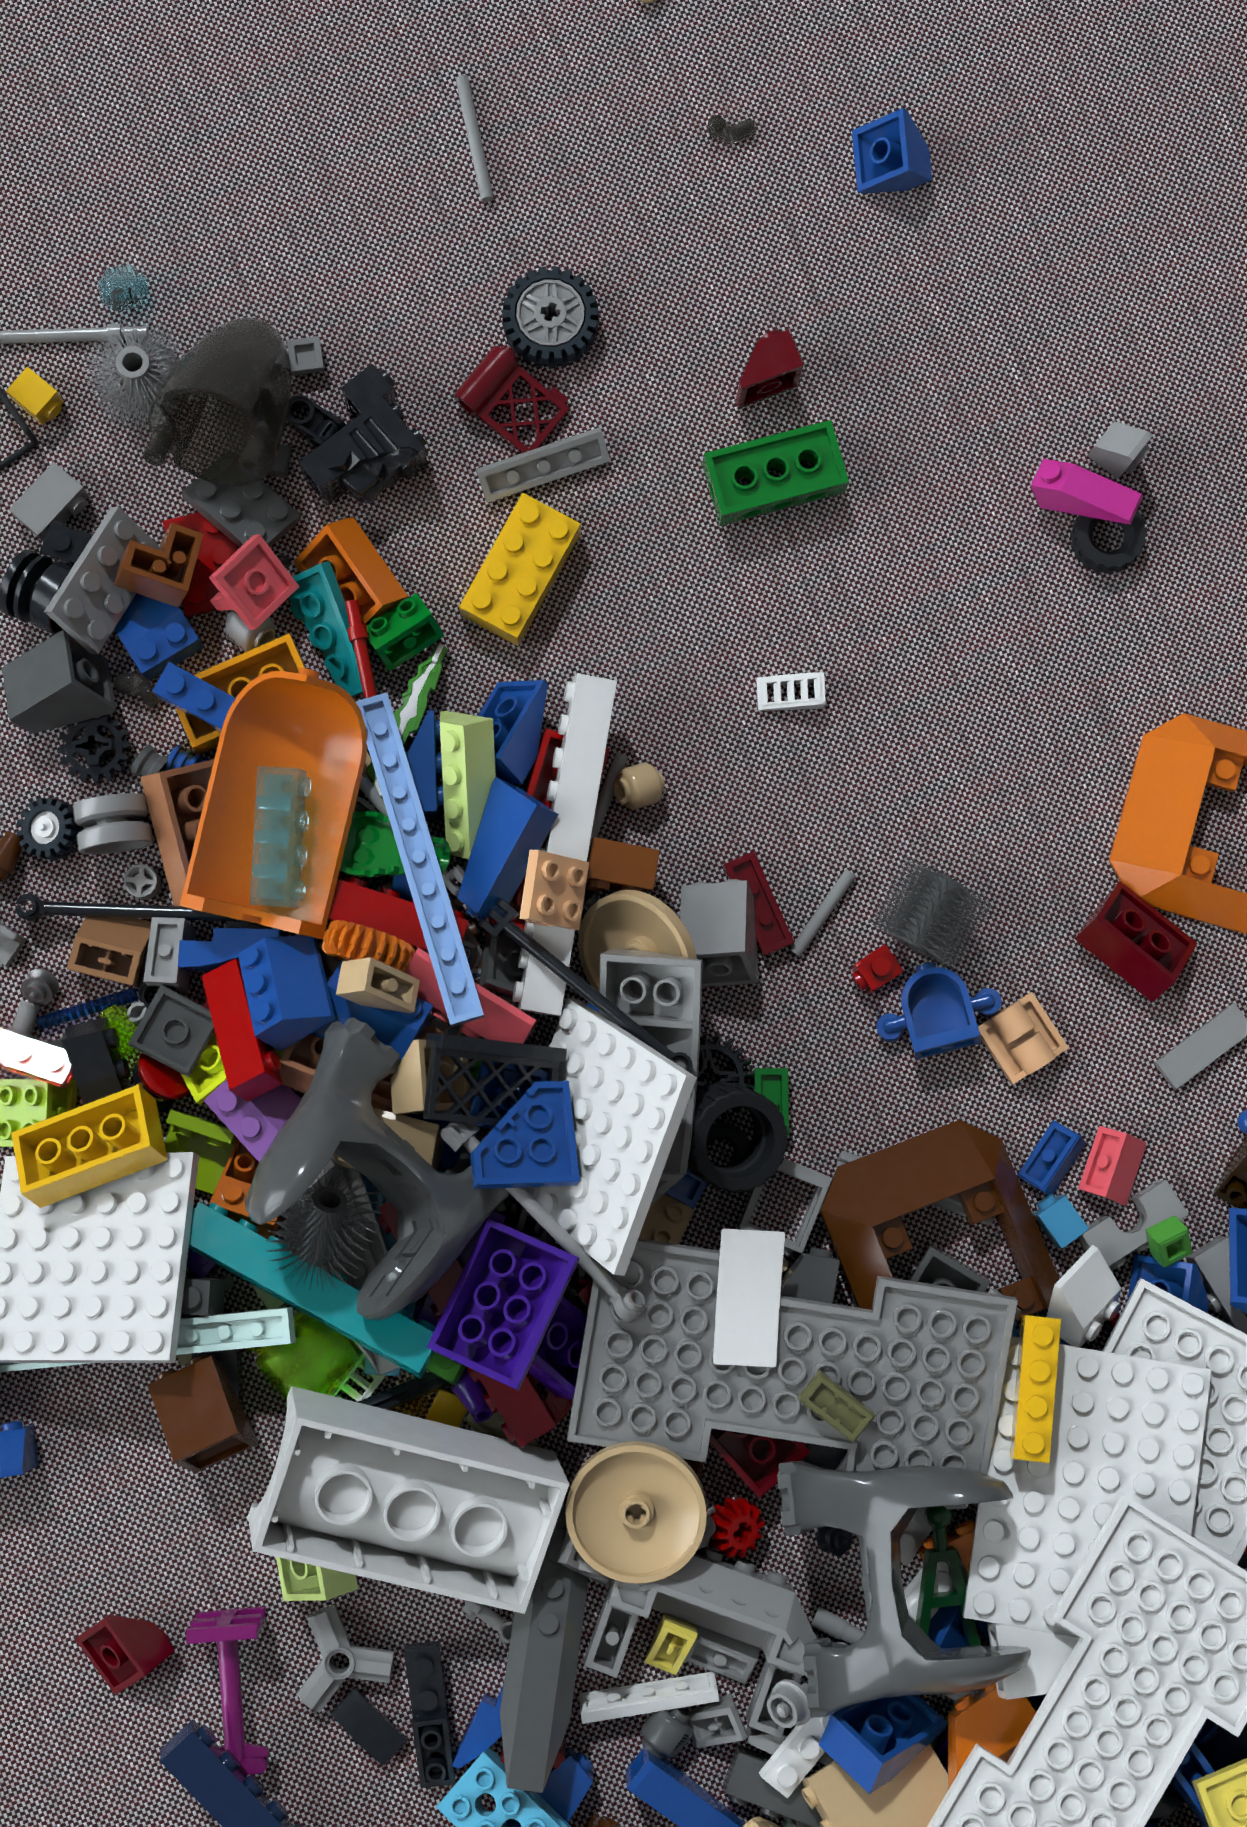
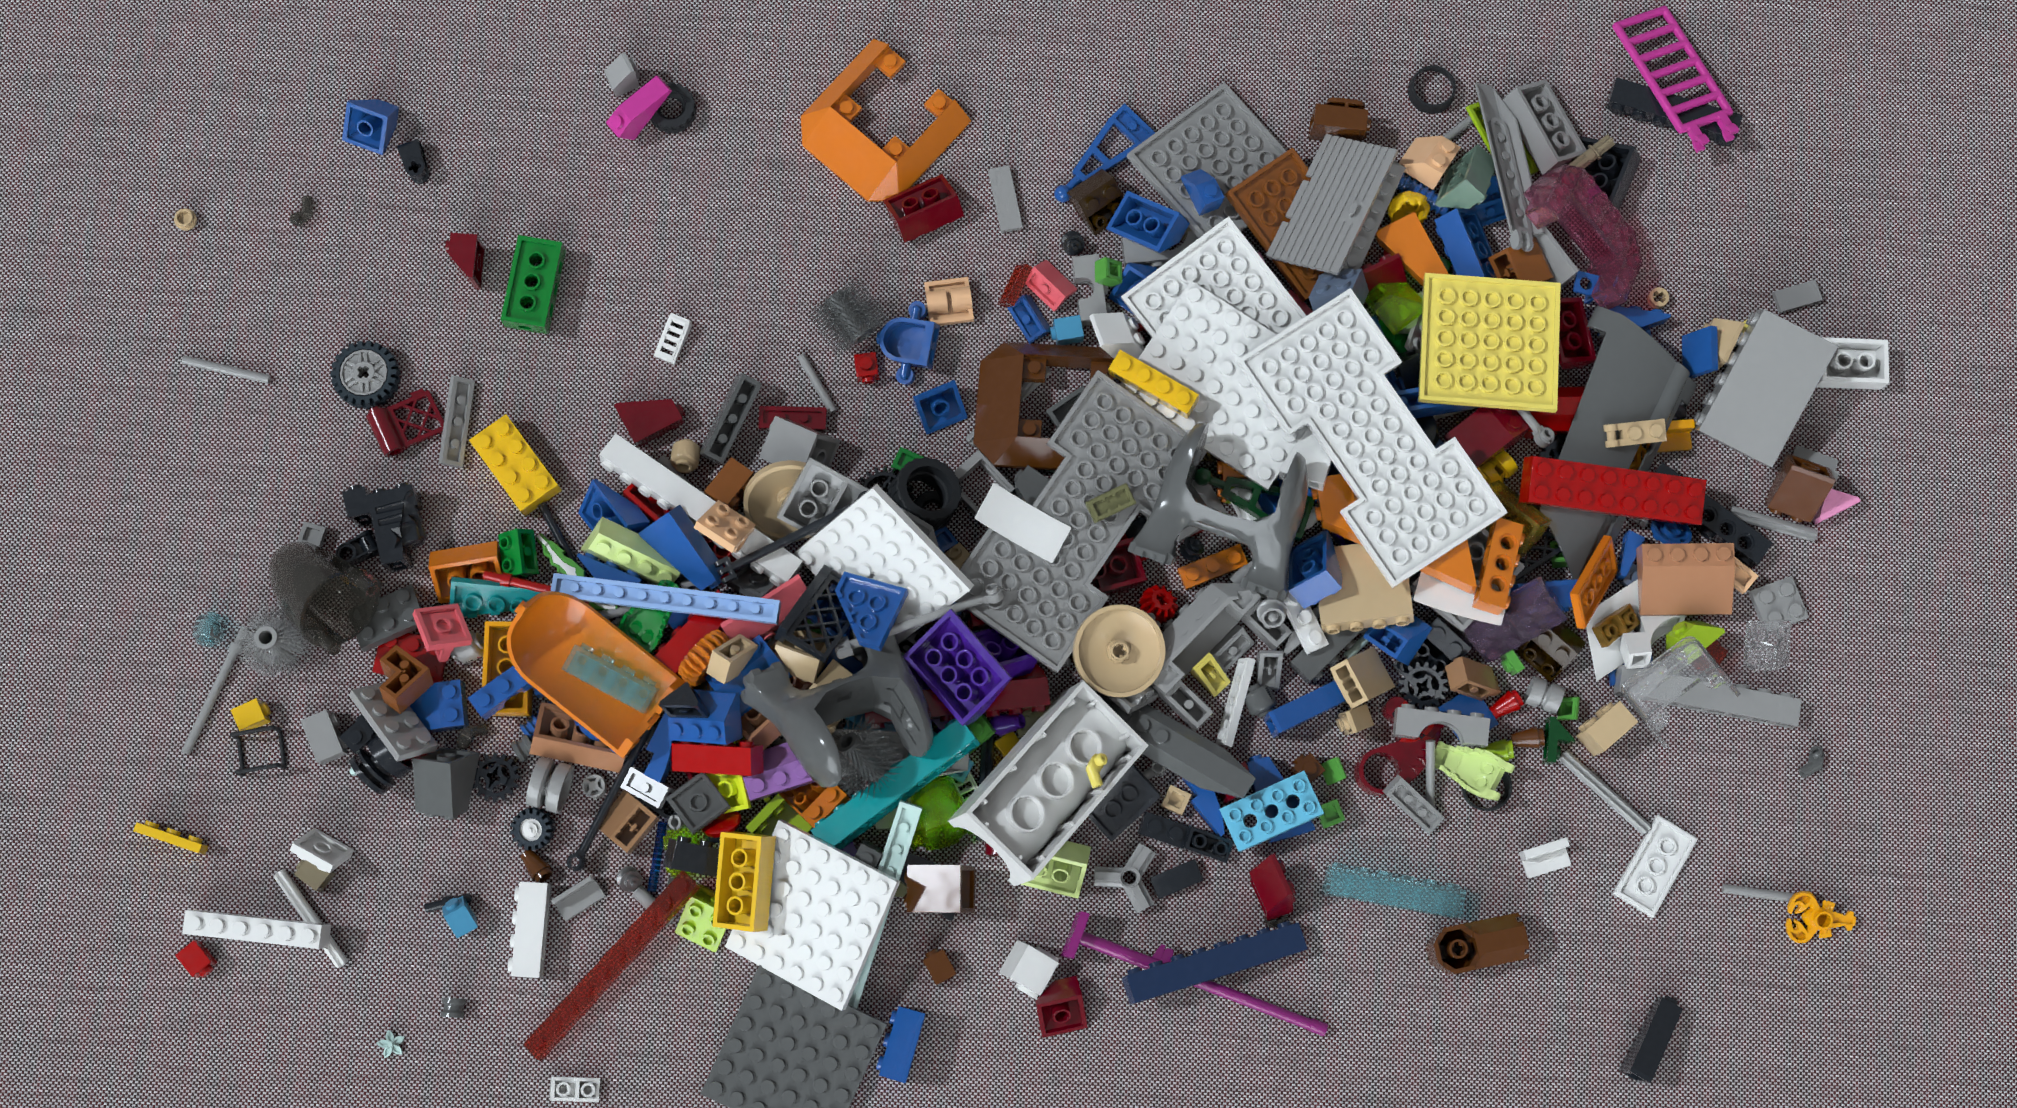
camera: 60 degrees left, 5 degrees down
(106, 1455) = (939, 966): none -> reddish brown brick
(157, 1581) = (1029, 968): none -> white plate
(290, 953) = (684, 703): none -> black slope
(440, 1618) = (1124, 803): none -> black plate
(451, 1557) = (1094, 767): none -> light yellow arm
(456, 670) = (554, 528): none -> black bar
(476, 1675) = (1176, 800): none -> tan plate
(666, 714) = (649, 418): none -> dark red slope
(716, 821) = (730, 418): none -> dark grey brick
(823, 1576) = (1212, 567): none -> orange plate
(867, 1096) = (939, 407): none -> blue slope
(868, 236) = (414, 159): none -> black piece
(1088, 1118) = (1015, 285): none -> clear red tile
(1187, 1170) = (1072, 243): none -> black wheel

